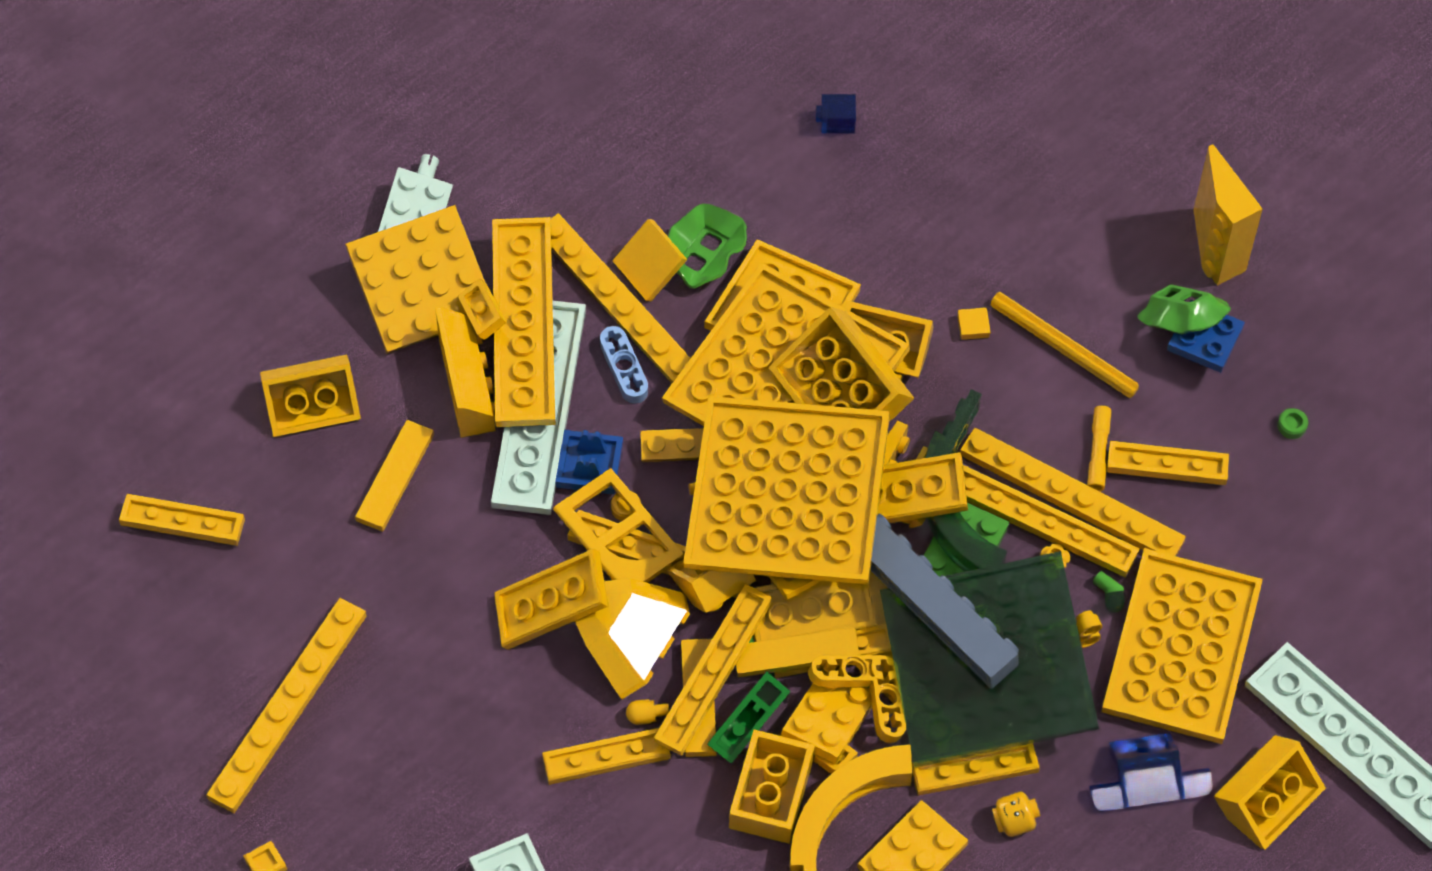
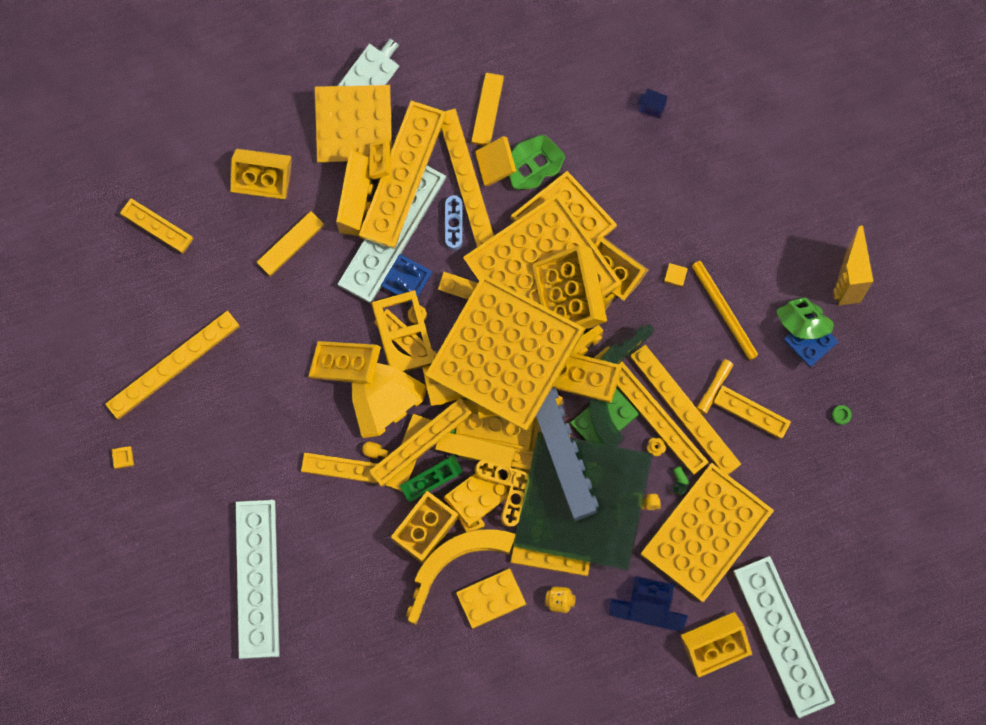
camera: 25 degrees right, 15 degrees up
(605, 201) = (487, 109): none -> yellow tile

